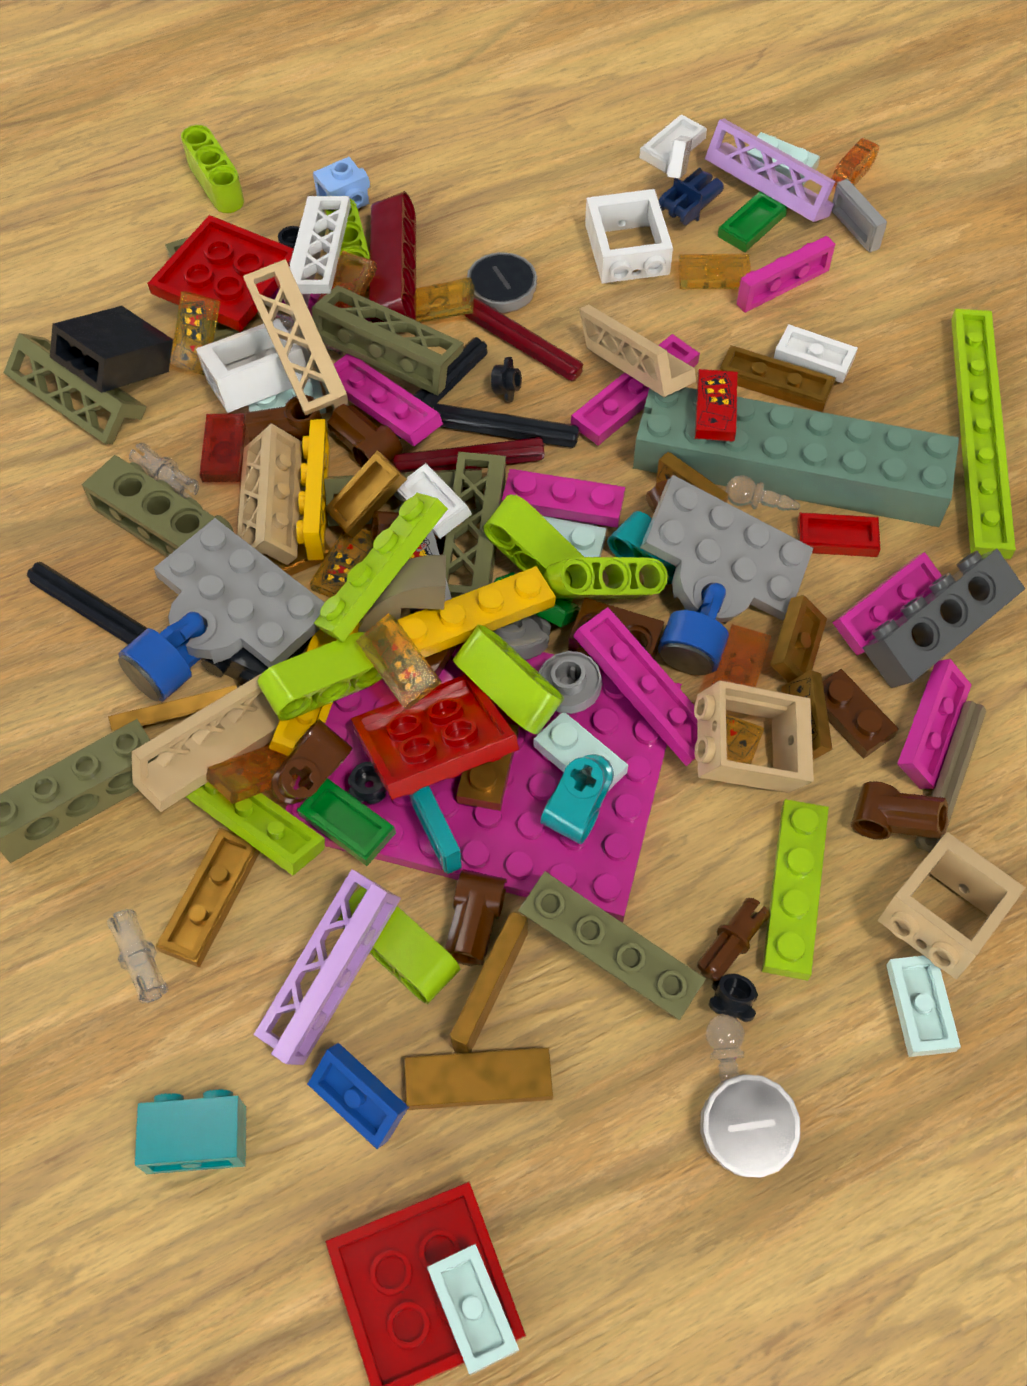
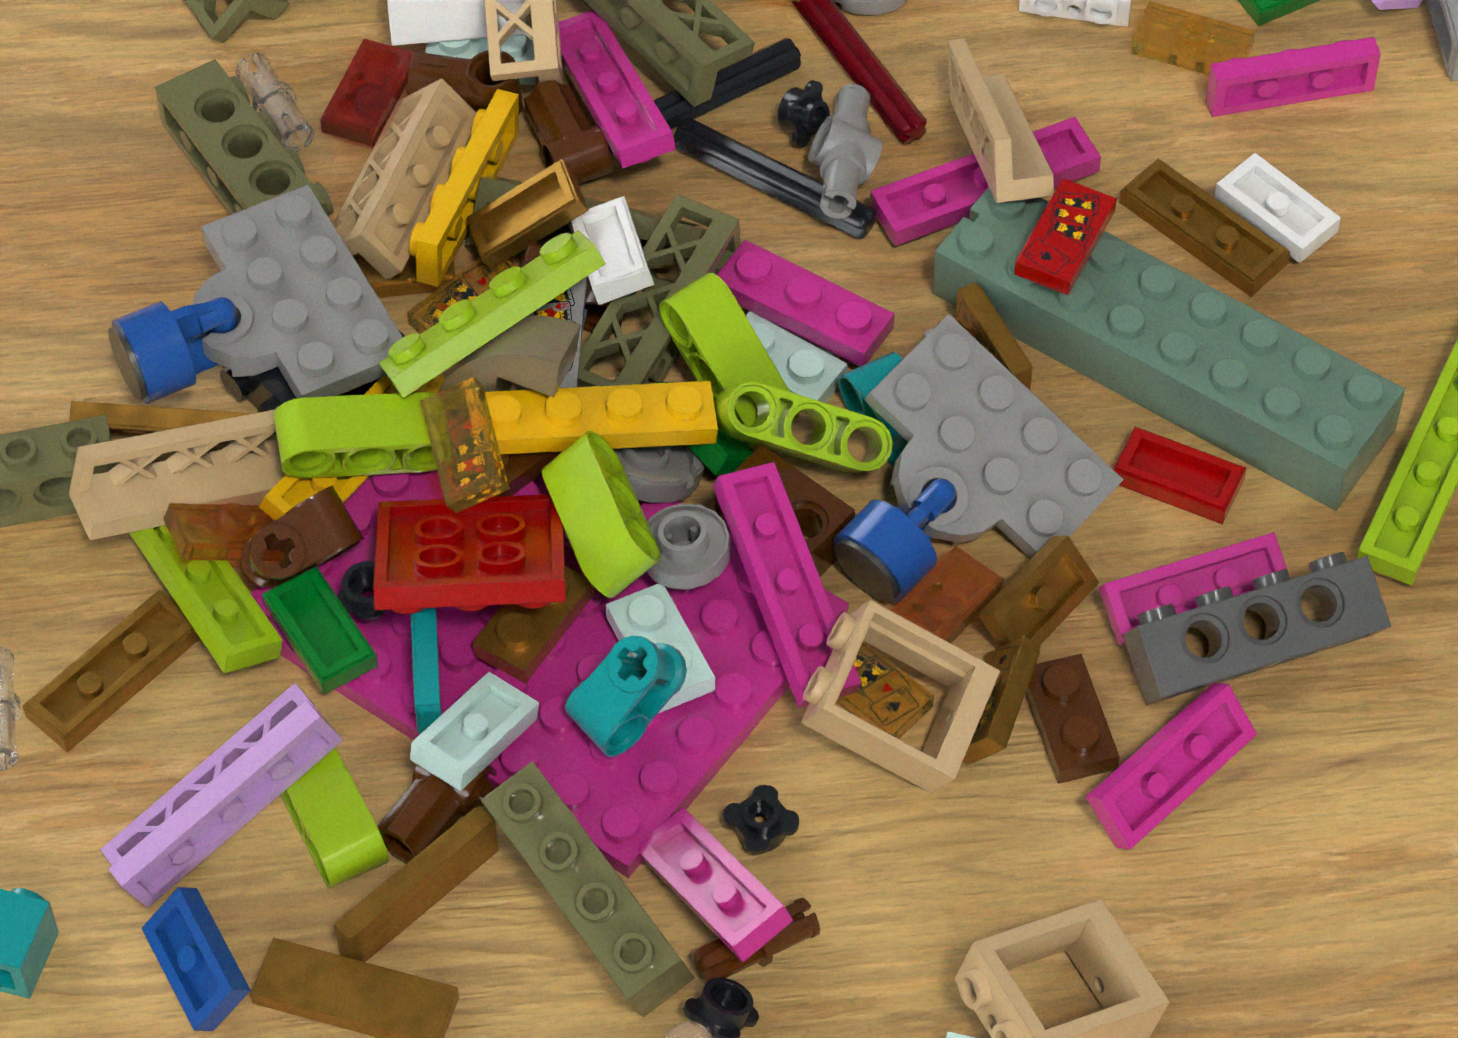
camera: 20 degrees right, 5 degrees down
(85, 602) = (99, 244): black axle -> none
(446, 459) = (753, 214): dark red axle -> none
(487, 860) = (474, 731): none -> light aqua plate
(544, 395) = (845, 151): none -> light grey pin
(692, 863) = (759, 836): none -> black plate
(694, 911) = (714, 884): none -> dark pink plate
(744, 491) = (1068, 372): clear bar -> none
(795, 890) = (874, 912): lime plate -> none
(887, 811) = (1046, 853): reddish brown piece -> none
(956, 762) = (1169, 833): dark tan axle -> none

